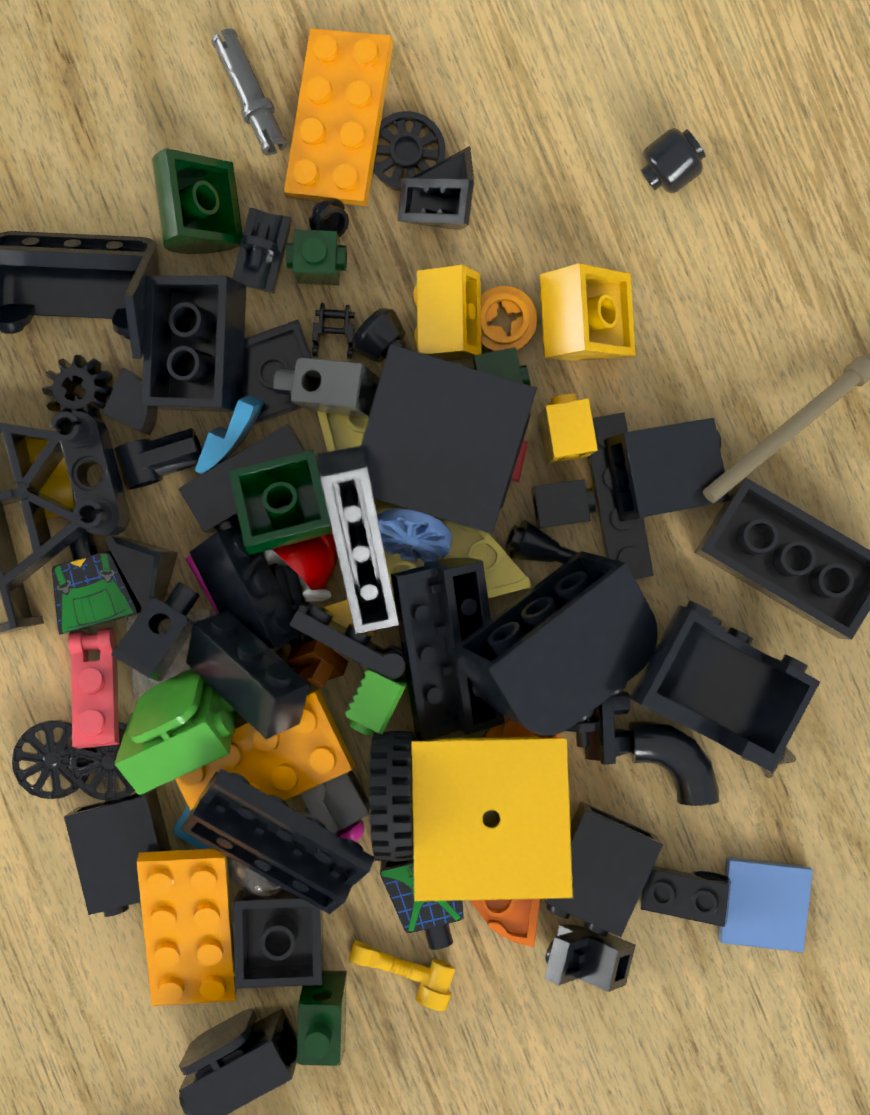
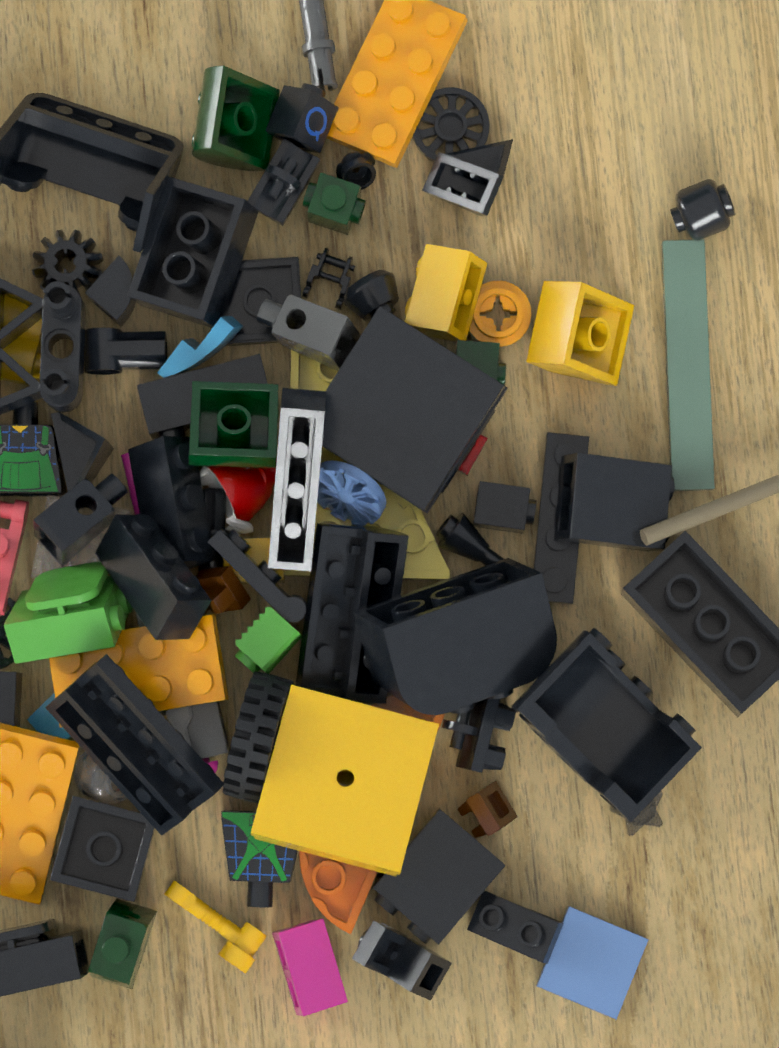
camera: 15 degrees right, 5 degrees down
(261, 181) = (302, 117): none -> black brick
(505, 987) = (309, 967): none -> dark pink hinge
(567, 429) = (526, 436): yellow brick -> none
(631, 792) = (490, 809): none -> reddish brown tile
(680, 757) = (547, 786): black cylinder -> none
(697, 314) = (688, 364): none -> sand green tile

